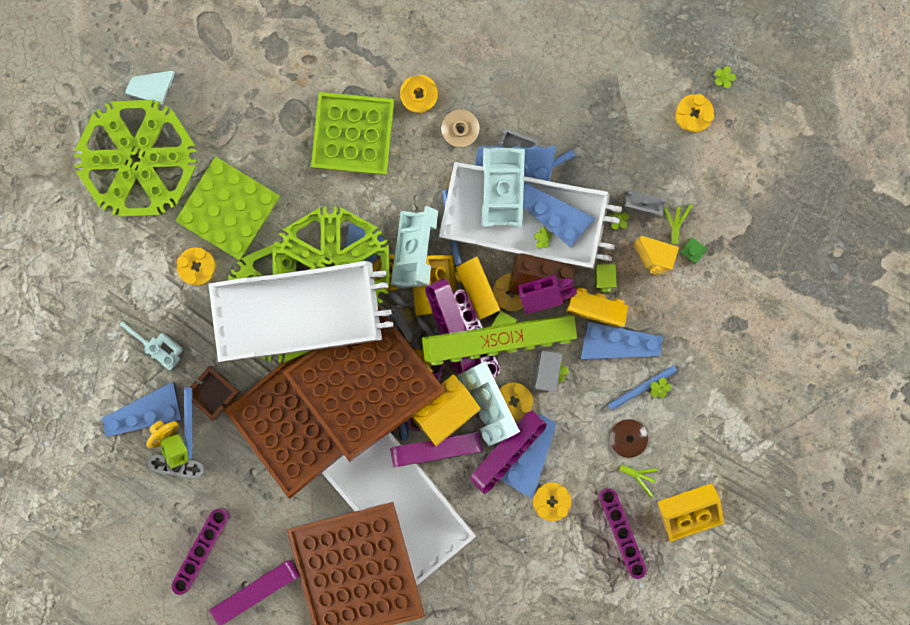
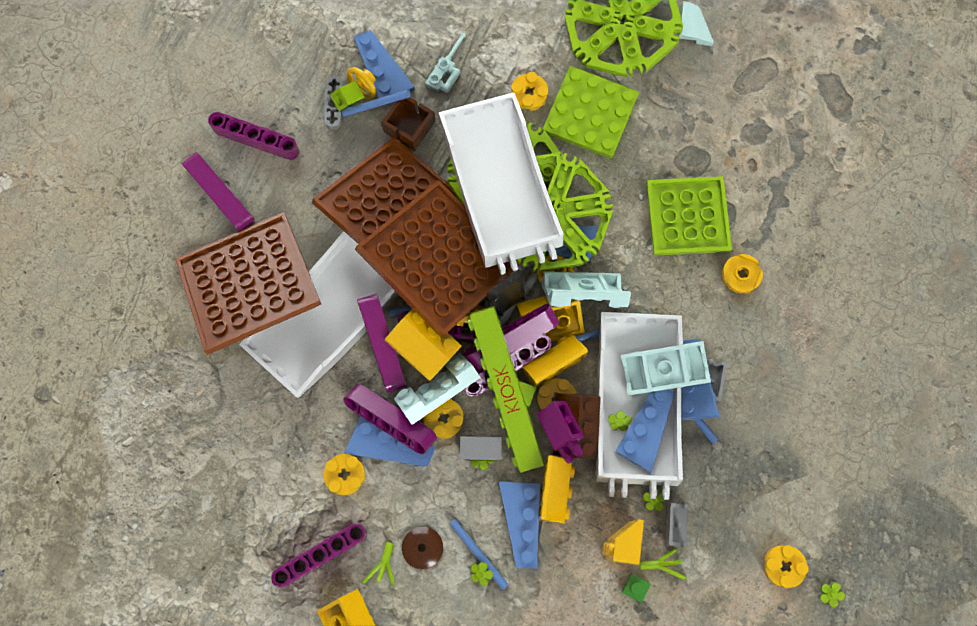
camera: 75 degrees right, 10 degrees down
(457, 119) = (720, 311): tan dish -> none
(605, 277) = (590, 494): lime brick -> none

